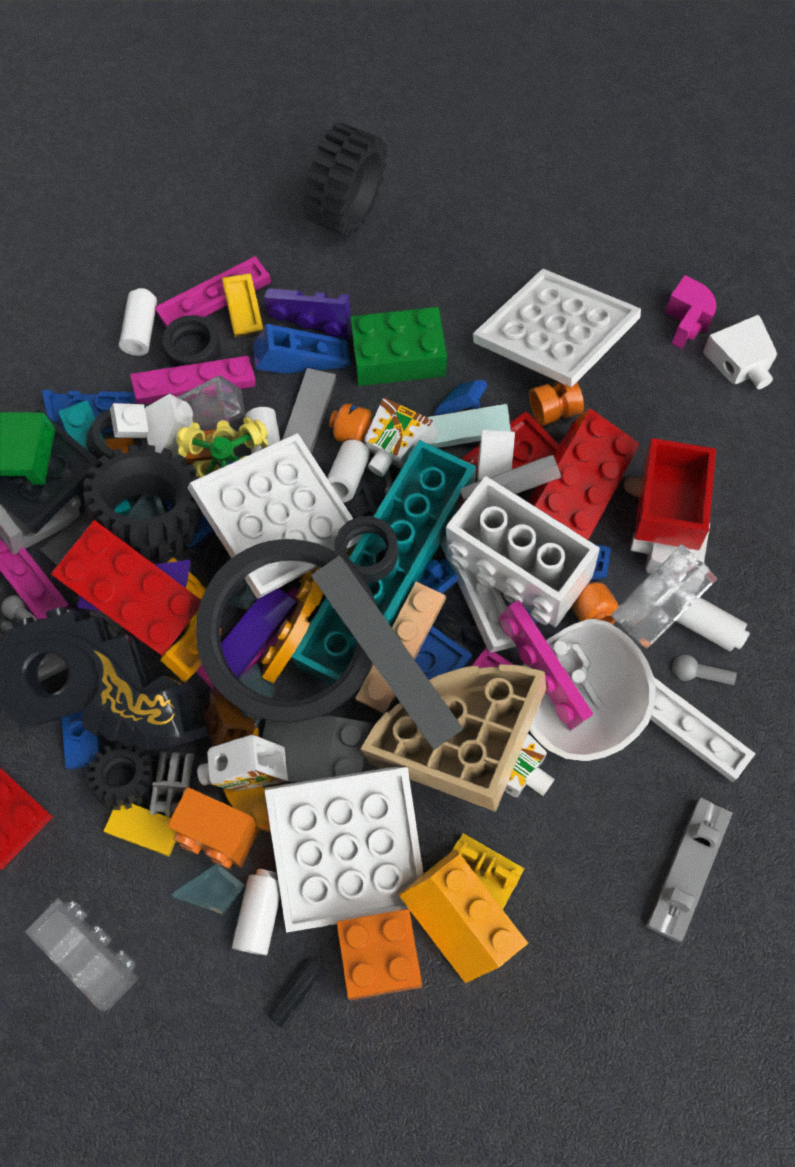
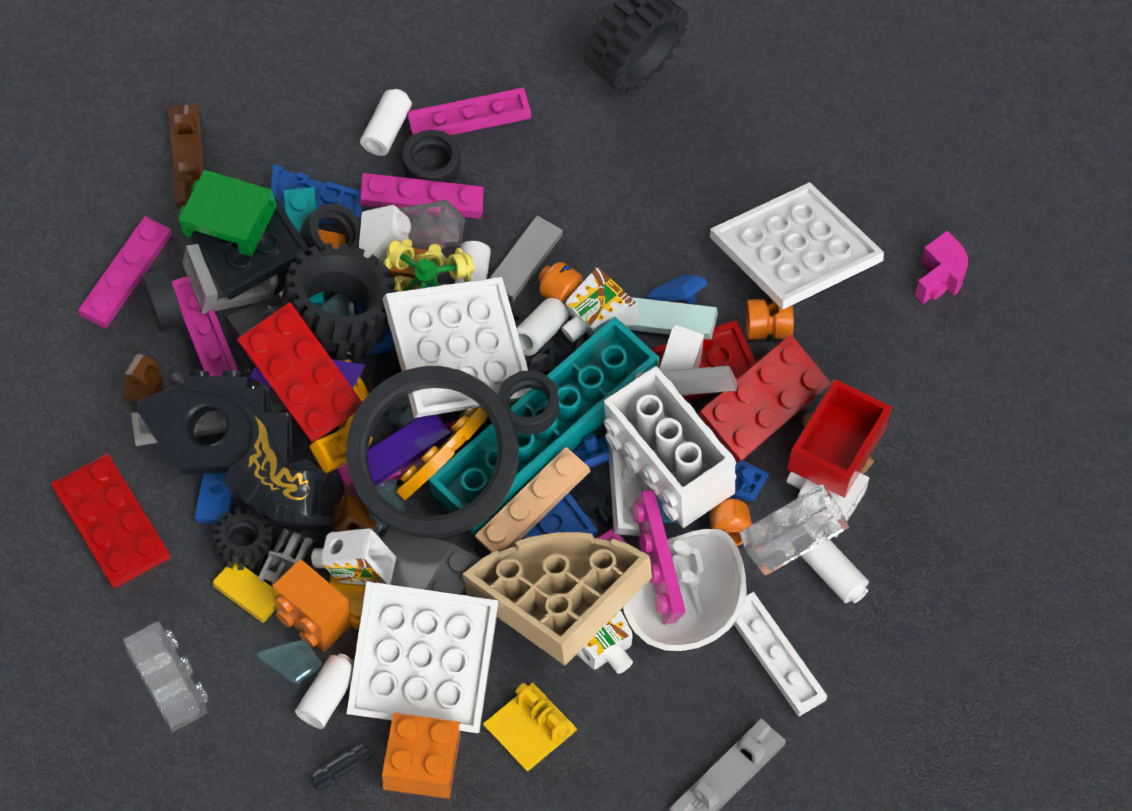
camera: 15 degrees right, 5 degrees down
(15, 608) = (187, 362): light grey bar -> none
(129, 420) = (348, 219): white plate -> none
(242, 305) = (494, 134): yellow tile -> none
(294, 350) = (532, 196): blue slope -> none
(309, 312) = (564, 163): dark purple wing -> none
(387, 652) = (512, 494): dark grey tile -> none
(398, 346) = (633, 220): green brick -> none
(462, 918) = (504, 745): light orange slope -> none
(686, 668) = (799, 605): light grey bar -> none
(743, 352) = (978, 325): white torso -> none

